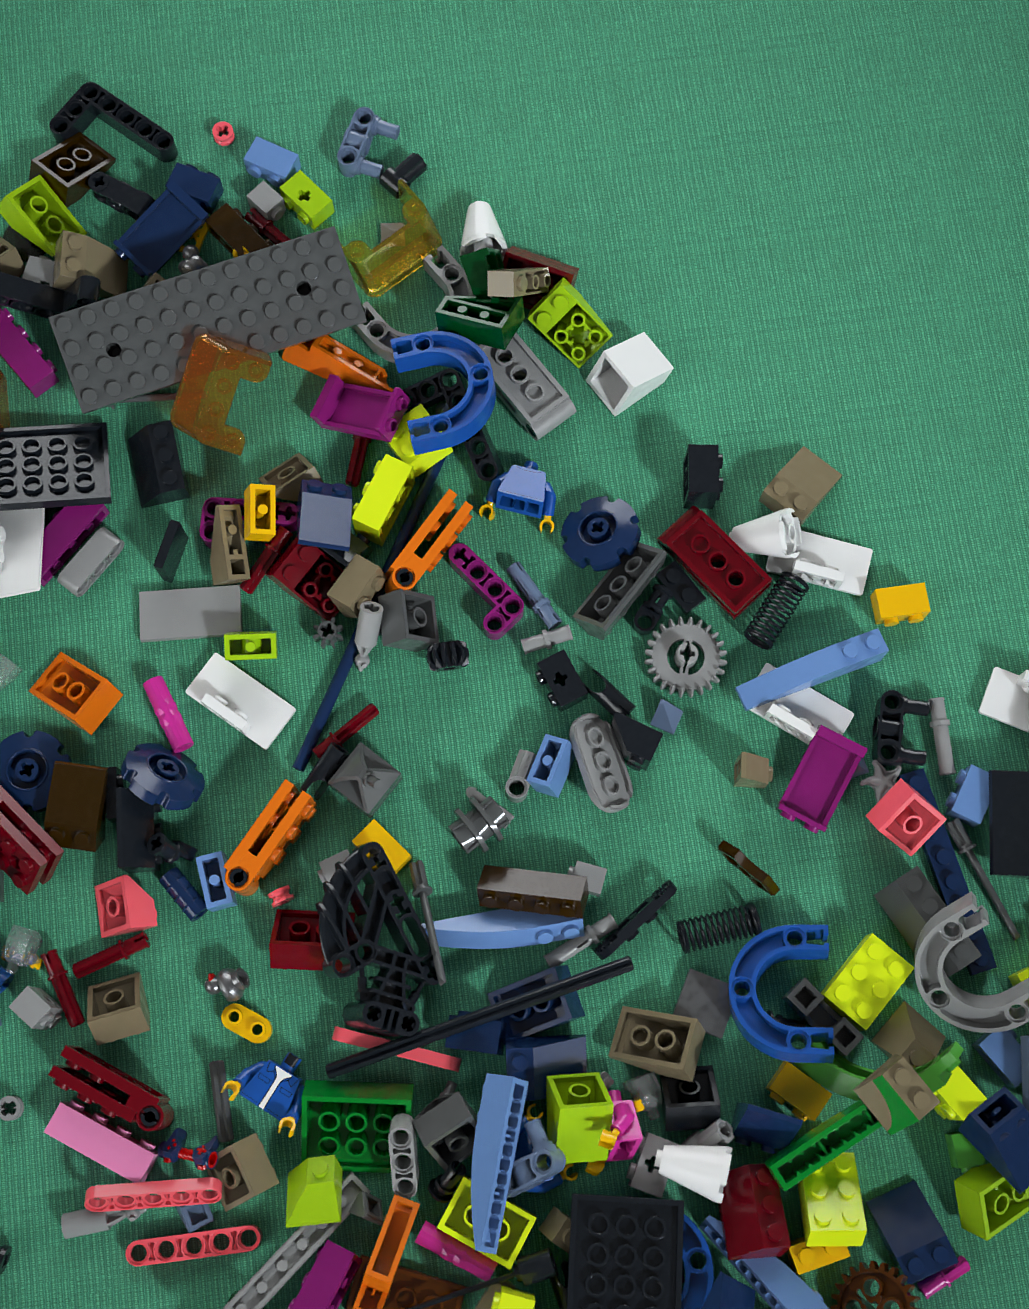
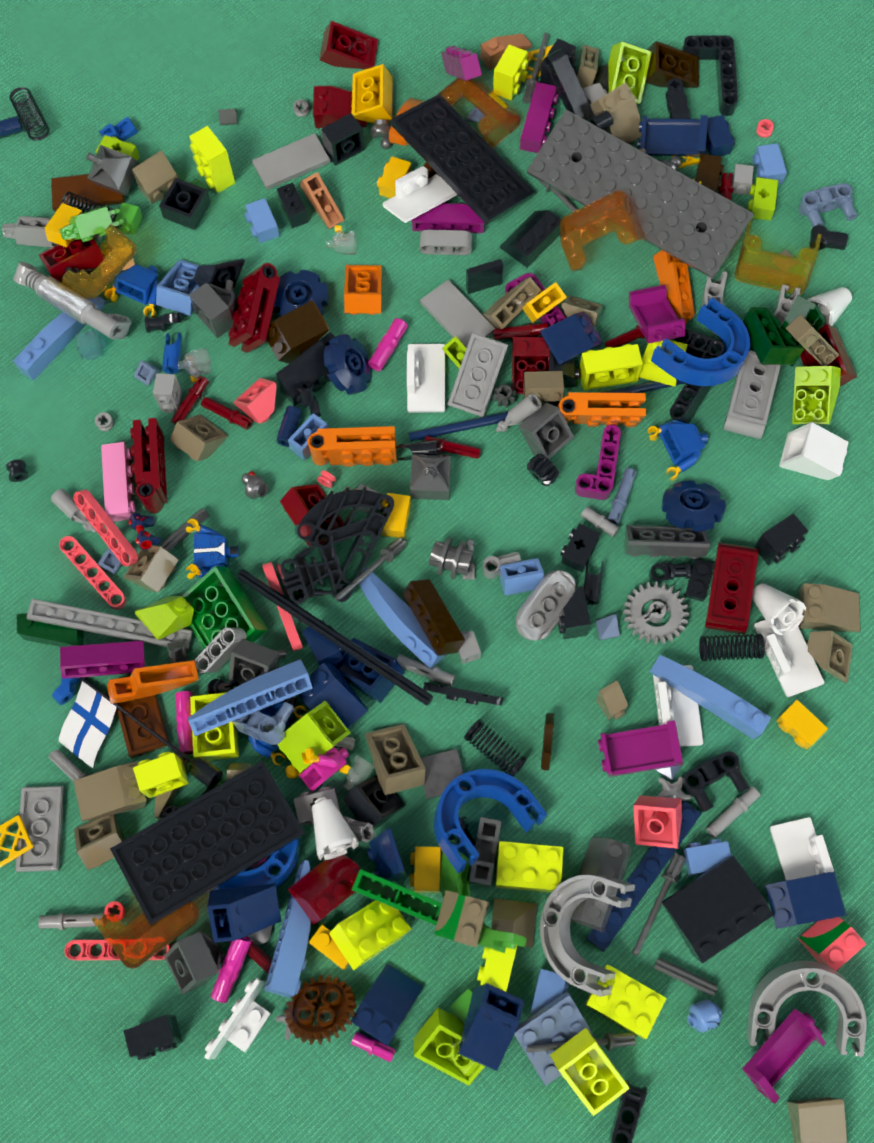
camera: 60 degrees right, 5 degrees down
(247, 1021) = (239, 512): yellow plate -> none
(286, 644) = (477, 374): none -> light grey tile
(848, 521) = (831, 653): none -> dark tan slope

